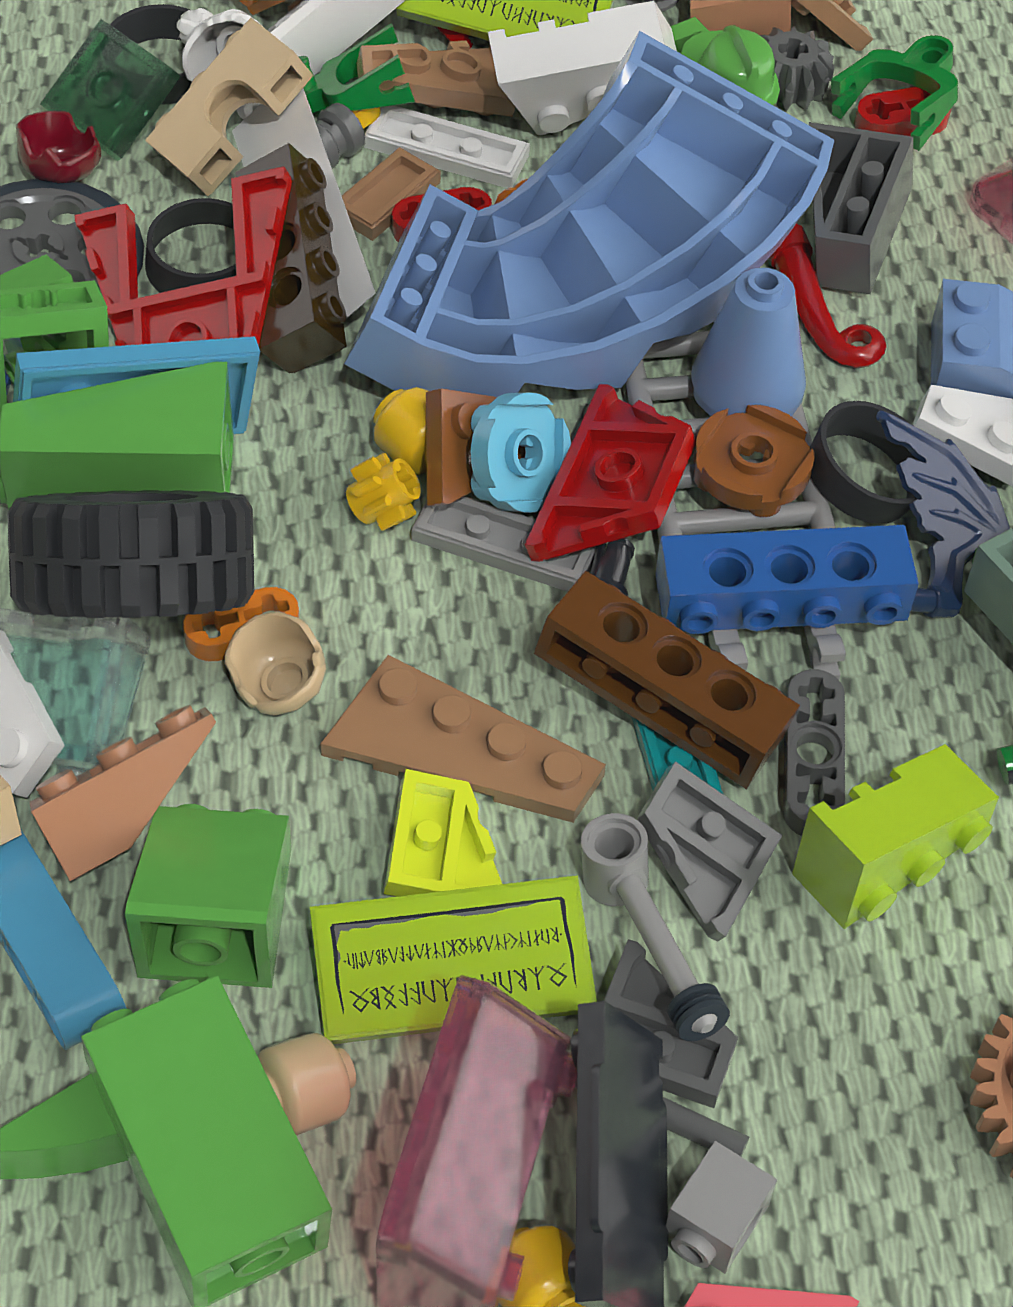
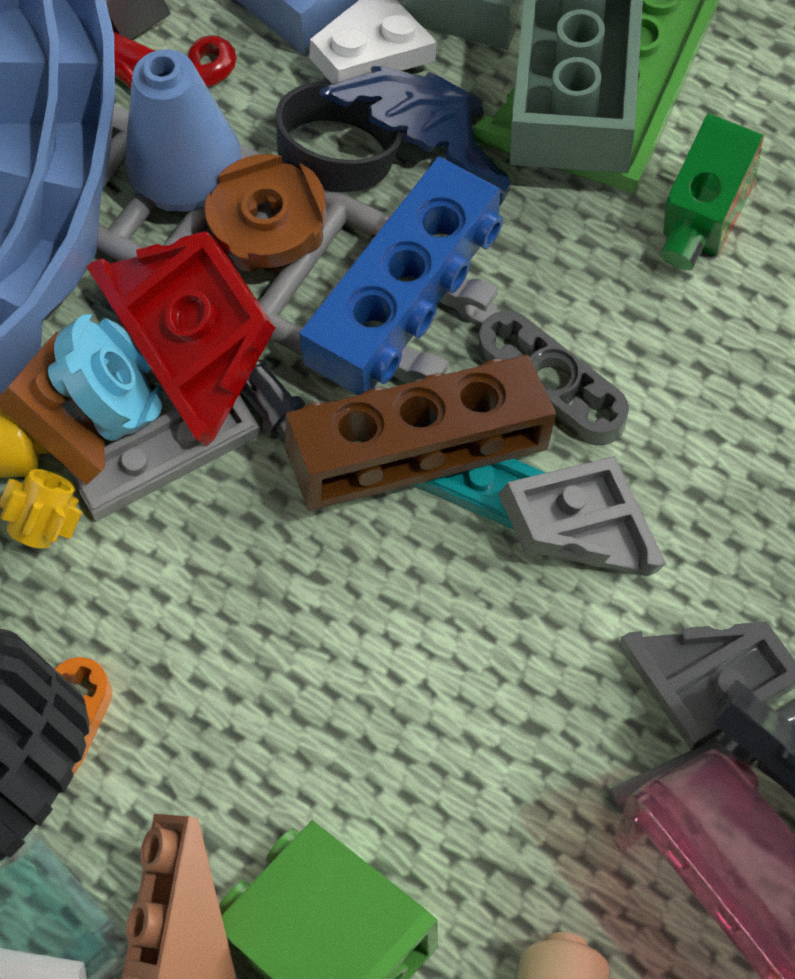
camera: 45 degrees left, 10 degrees up
(275, 663) = (141, 721): tan hair -> none
(397, 959) = (533, 788): lime tile -> none
(431, 728) = (312, 637): medium nougat wing -> none
(438, 838) = (420, 715): neon yellow wing -> none
(618, 875) = (734, 634): light grey piece -> none
(892, 835) = (680, 379): lime wedge -> none

